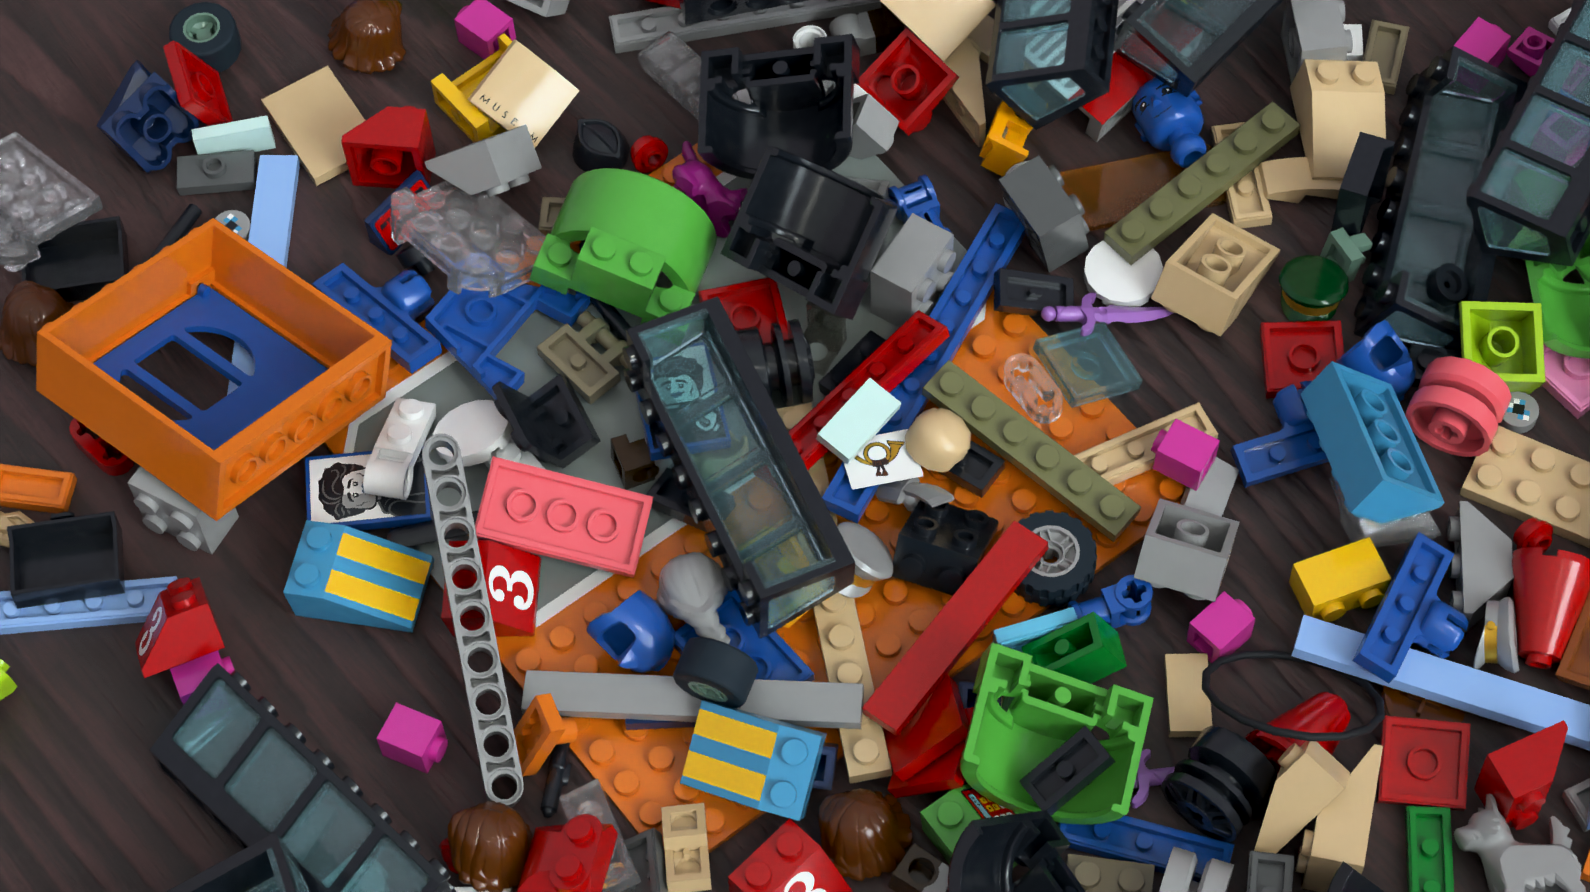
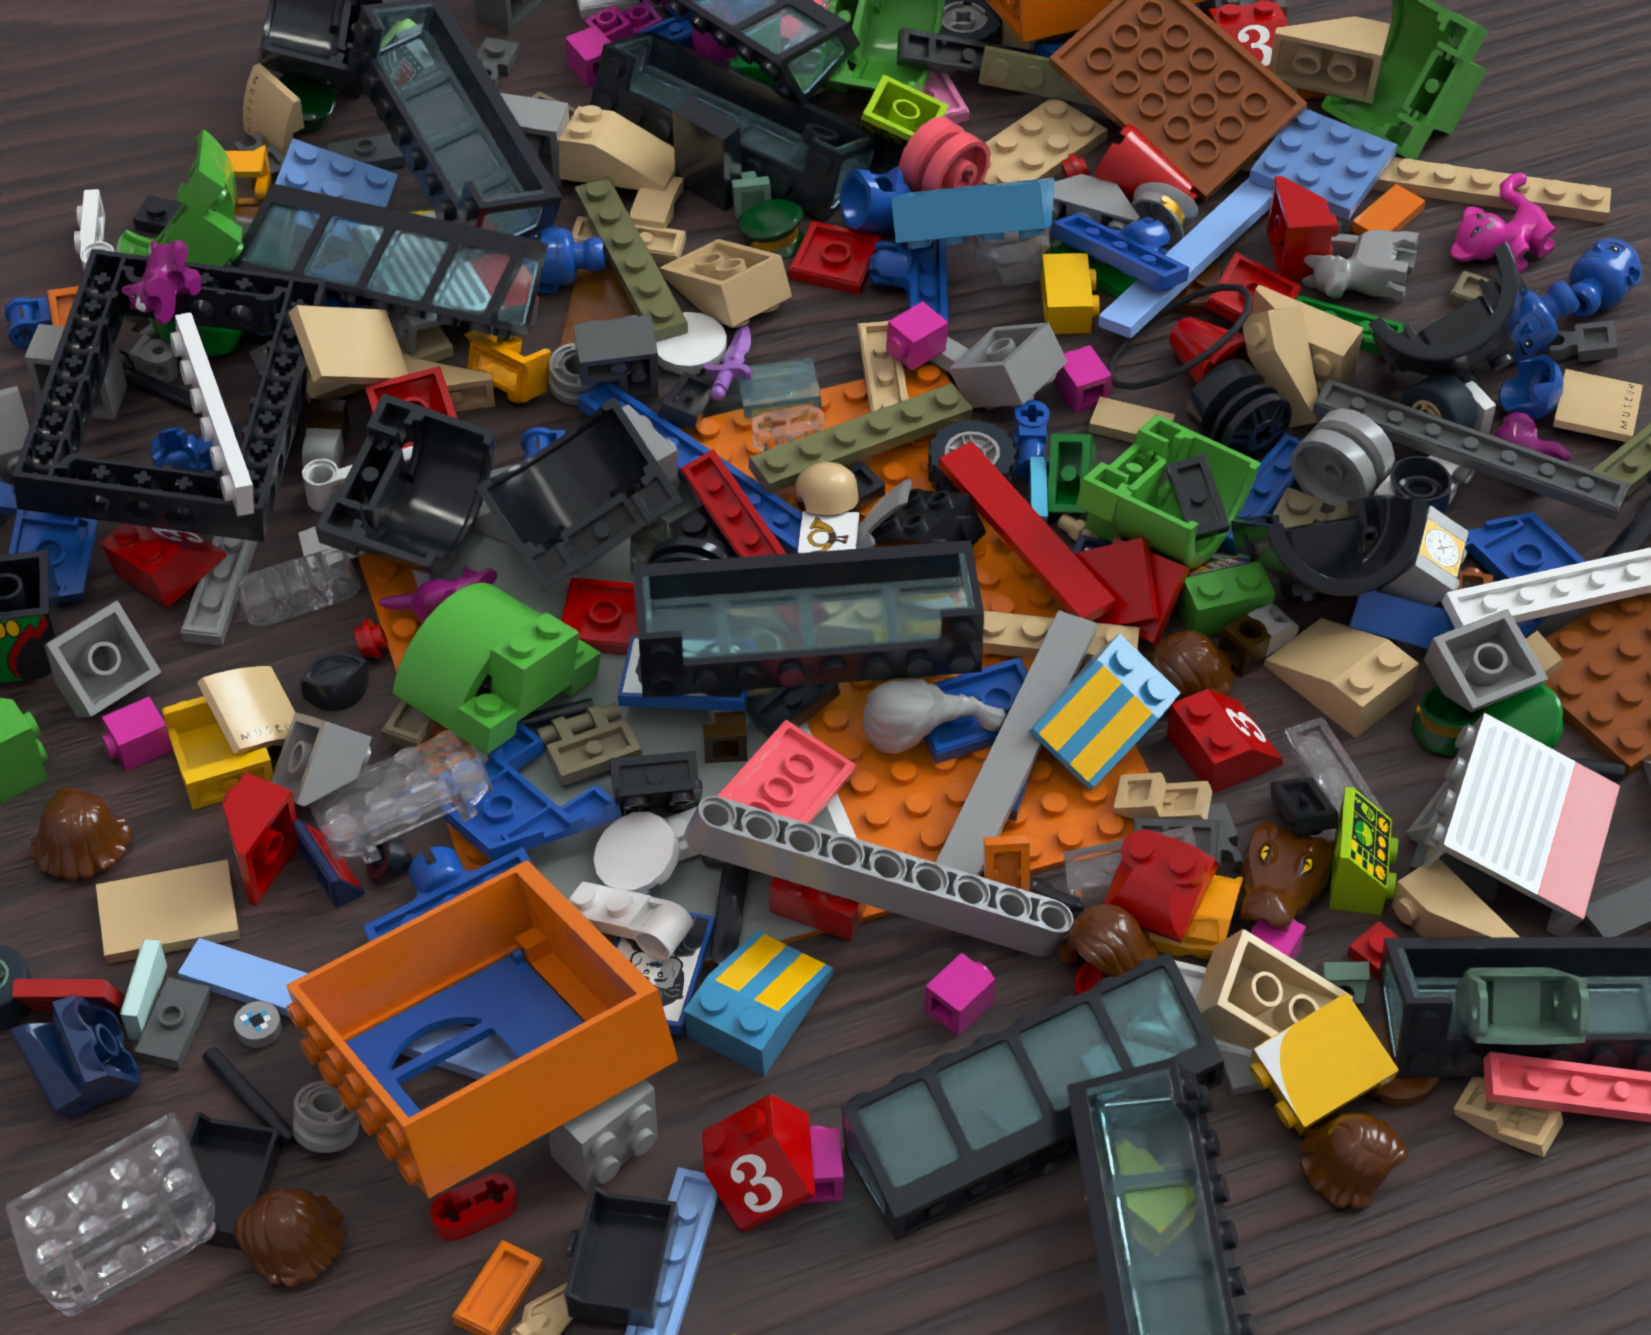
camera: 75 degrees left, 10 degrees down
(635, 634) = (929, 768): blue piece -> none
(715, 672) = (1016, 699): black wheel -> none
(858, 421) = (786, 527): light aqua tile -> none

